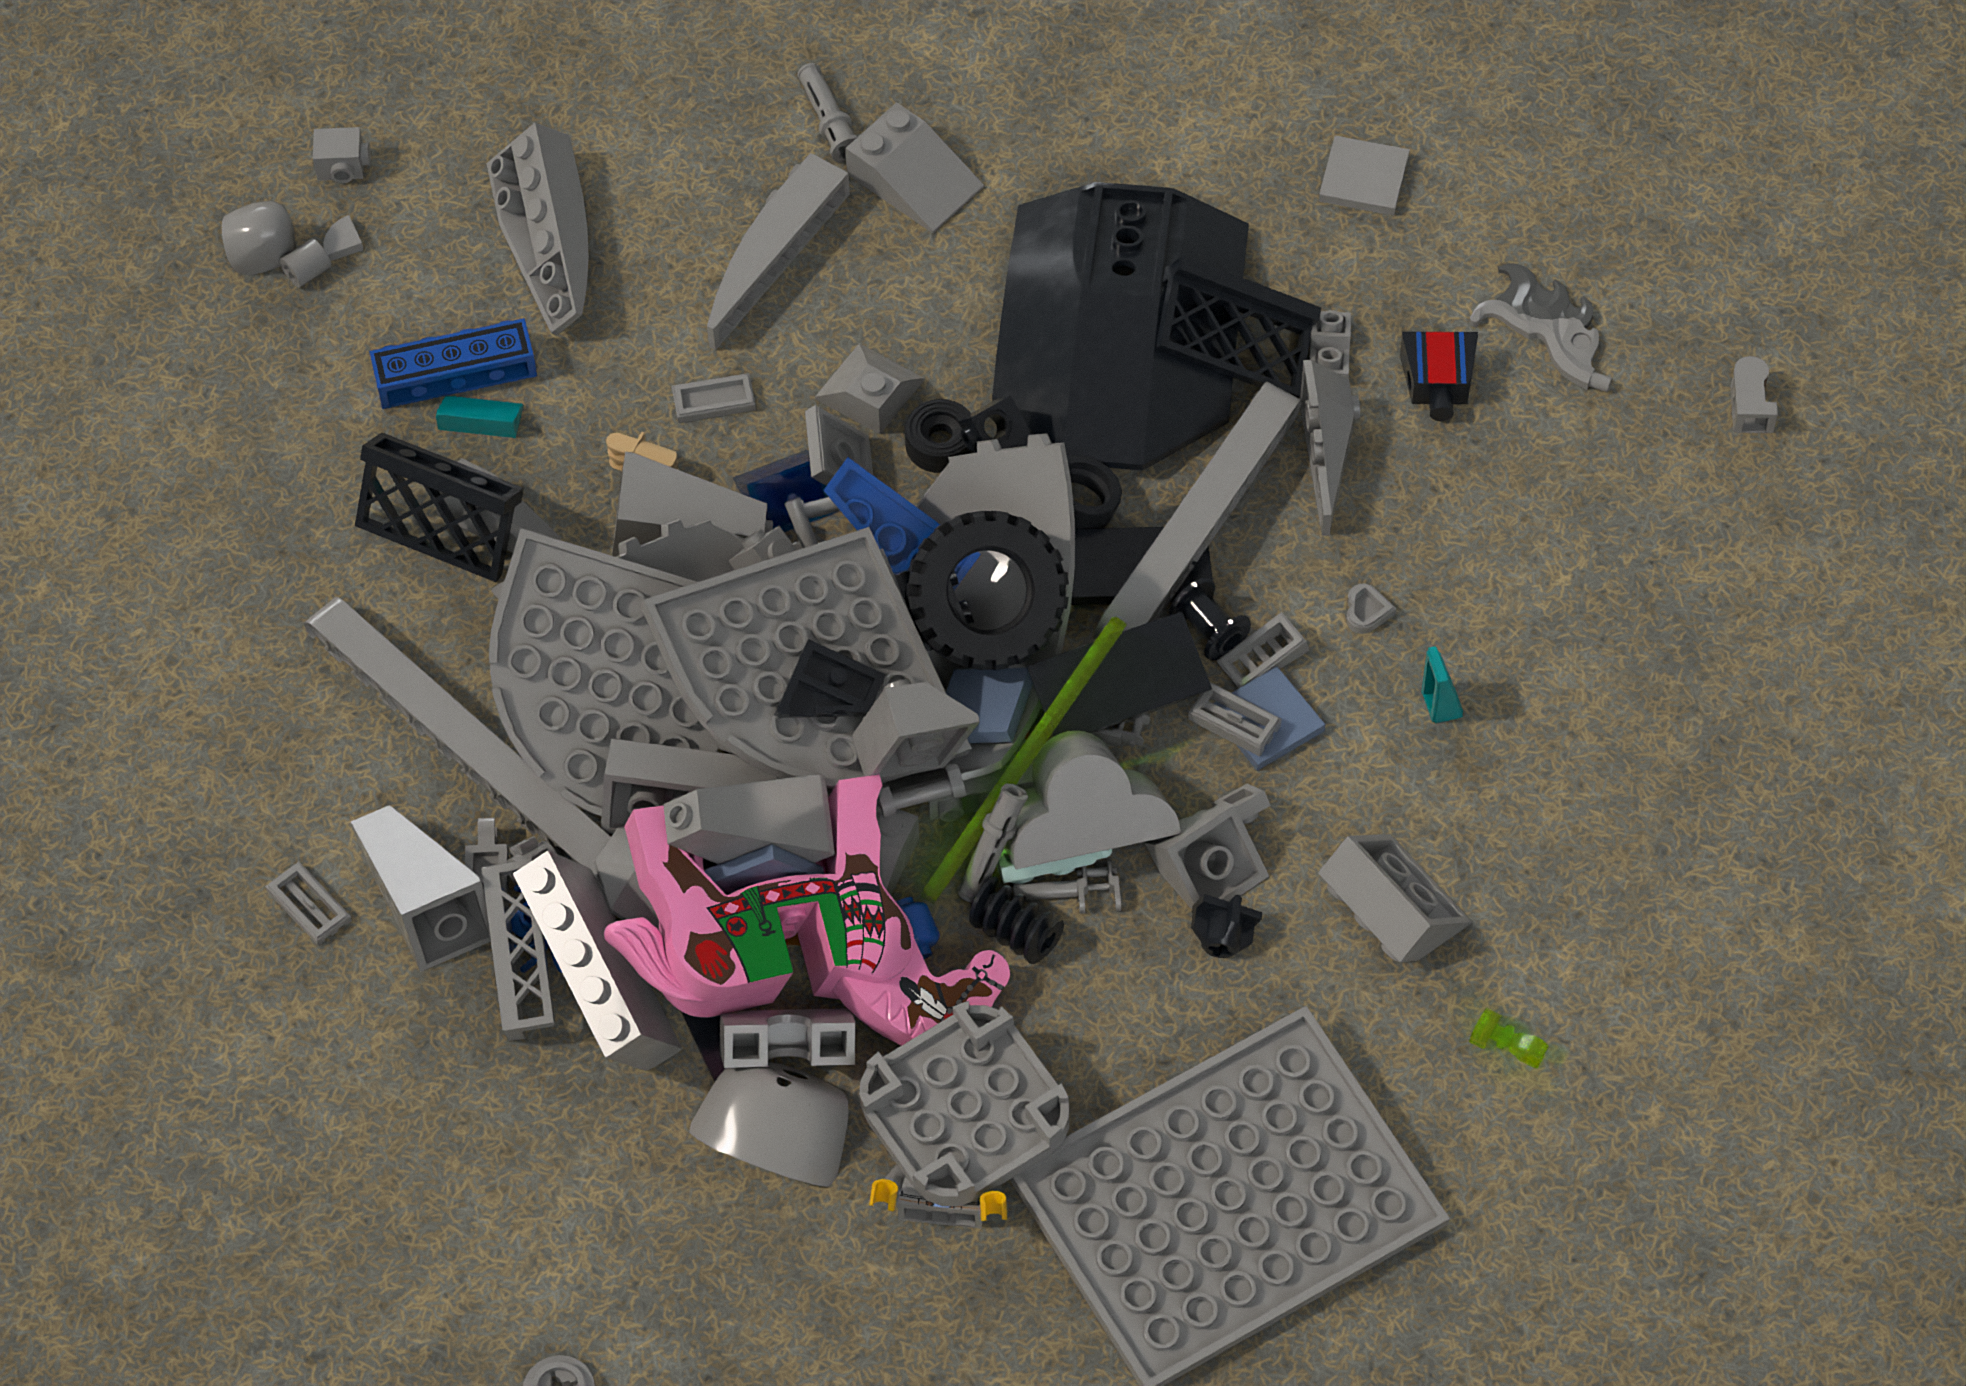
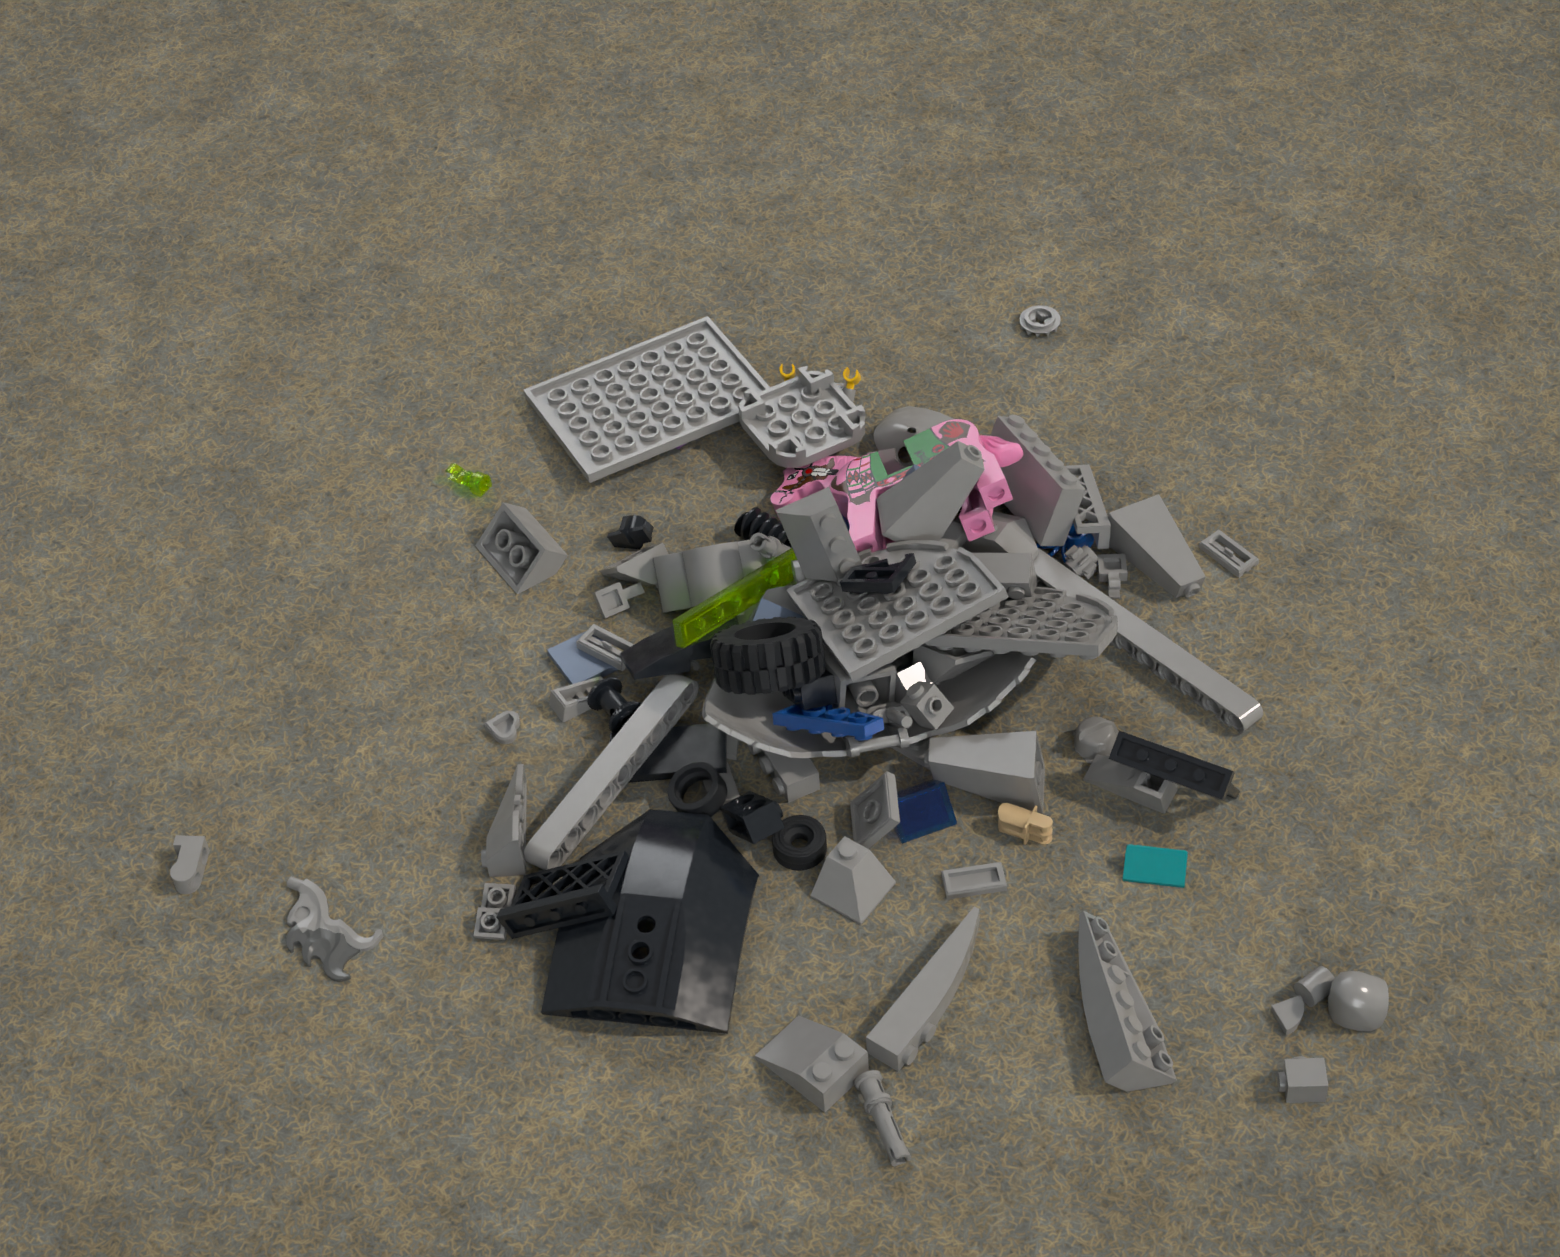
camera: 175 degrees left, 10 degrees down
(453, 363) = (1180, 898): blue brick -> none
(1364, 175) = (439, 1056): light grey tile -> none
(1438, 369) = (414, 885): torso -> none
(1439, 689) = (464, 661): teal slope -> none

